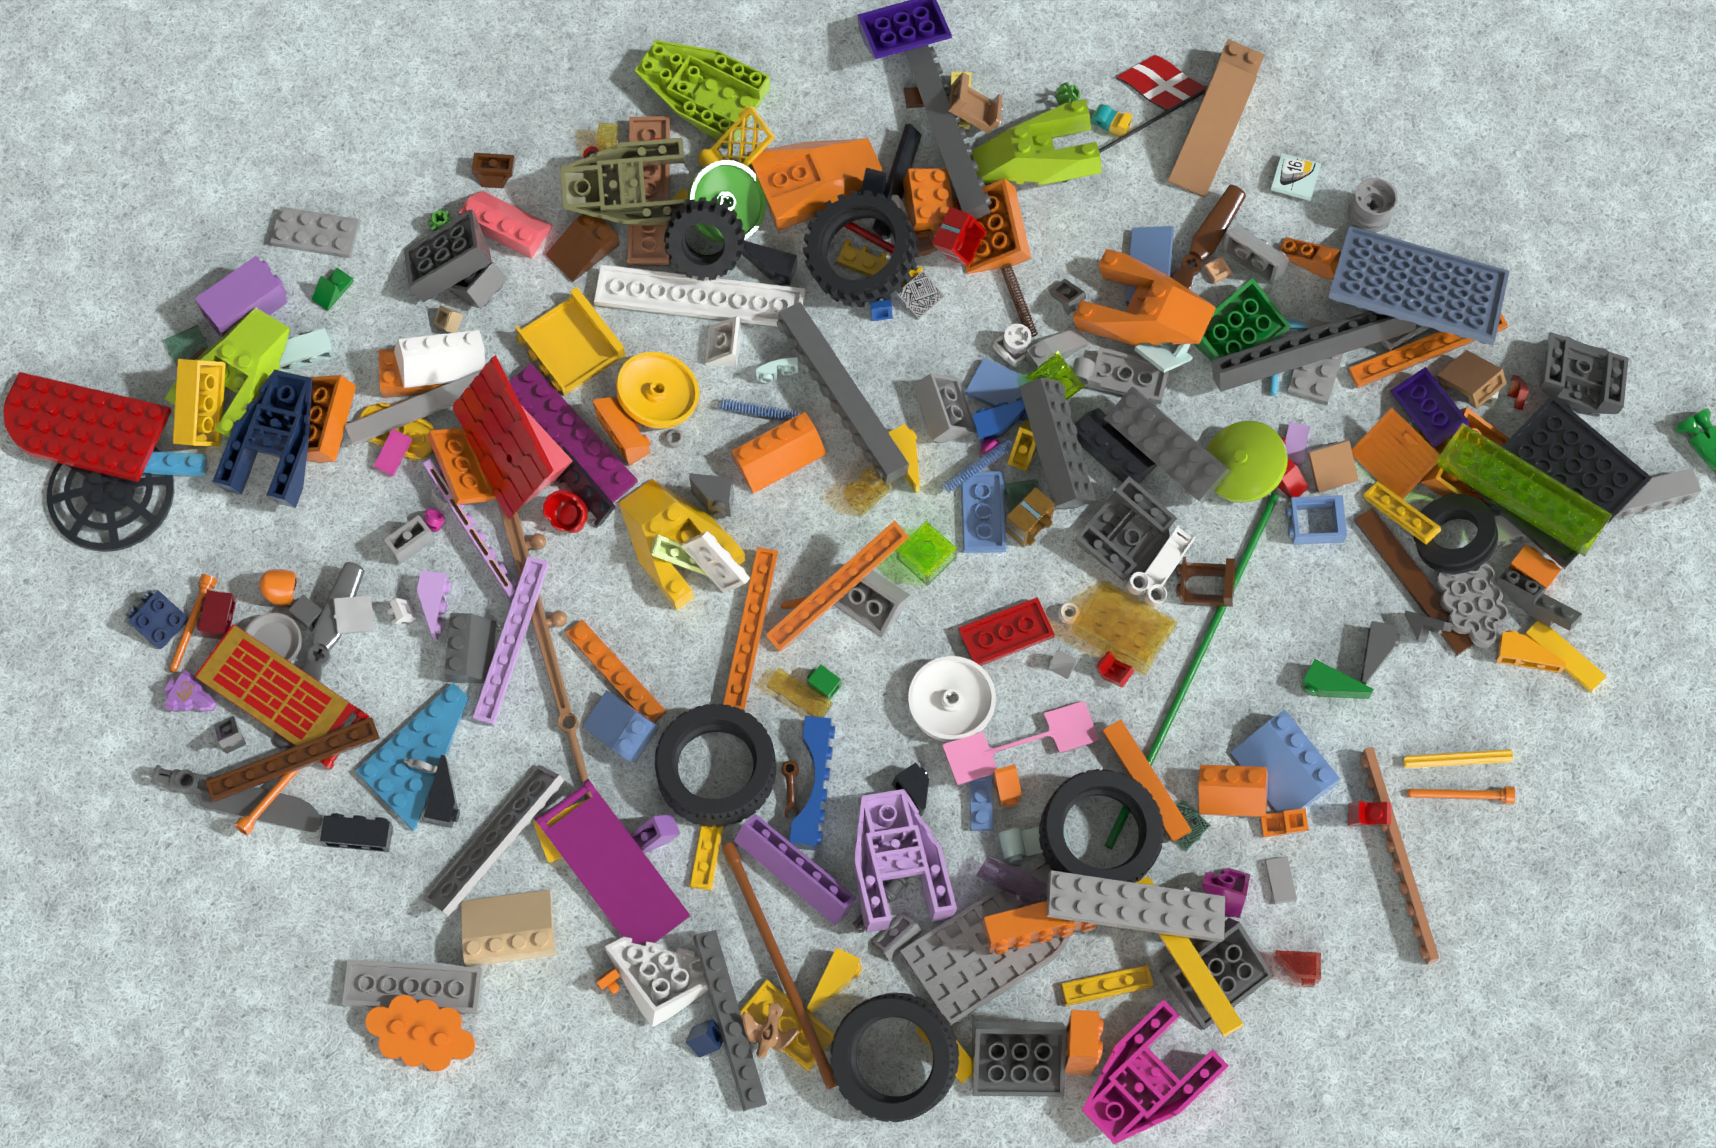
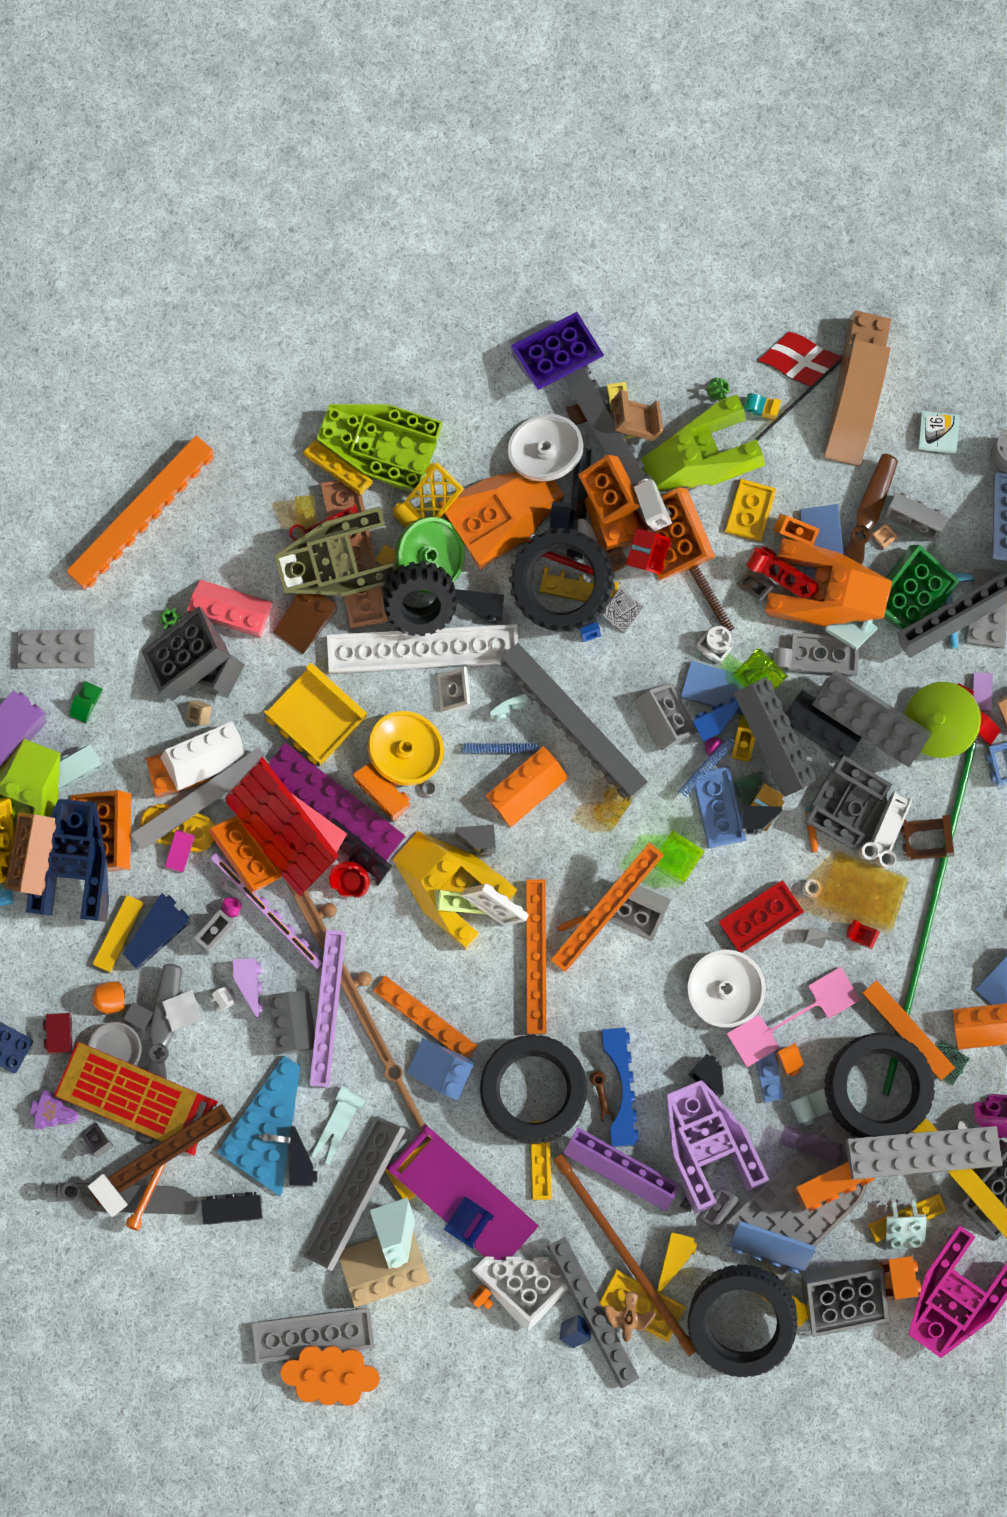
camera: 15 degrees left, 10 degrees up
(206, 583) = (41, 1007): orange piece -> none
(223, 790) = (107, 1195): none -> white tile
(231, 419) = (30, 853): none -> slope
(307, 526) = (118, 933): none -> yellow tile
(347, 529) = (156, 931): none -> dark blue slope
(435, 114) = (140, 512): none -> orange brick
(493, 169) = (206, 558): reddish brown slope -> none
(497, 763) = (339, 1121): none -> light aqua flag
(527, 885) = (395, 1230): none -> light aqua slope
(607, 889) = (463, 1218): none -> clear blue plate
(650, 104) = (337, 467): none -> yellow tile
(656, 832) = (493, 1159): medium lavender slope -> none
(799, 694) = (591, 1008): clear yellow plate -> none
(823, 682) = (610, 994): green brick -> none
(872, 120) = (545, 447): none -> white dish
(906, 442) = (637, 756): yellow slope -> none
(930, 165) = (610, 489): none -> orange slope
(944, 980) = (771, 1246): none -> medium blue slope
(971, 186) = (652, 504): none -> white slope
(1021, 518) = (757, 818): none -> black slope
(1064, 343) = (754, 639): light grey slope -> none
(1078, 220) = (750, 510): none -> yellow tile
(1080, 558) = (812, 834): none -> orange piece
(1084, 269) = (765, 559): none -> red piece
(1103, 994) = (905, 1231): none -> light aqua plate
(1120, 241) = (795, 529): none -> orange slope
(1312, 257) = (966, 509): orange slope -> none

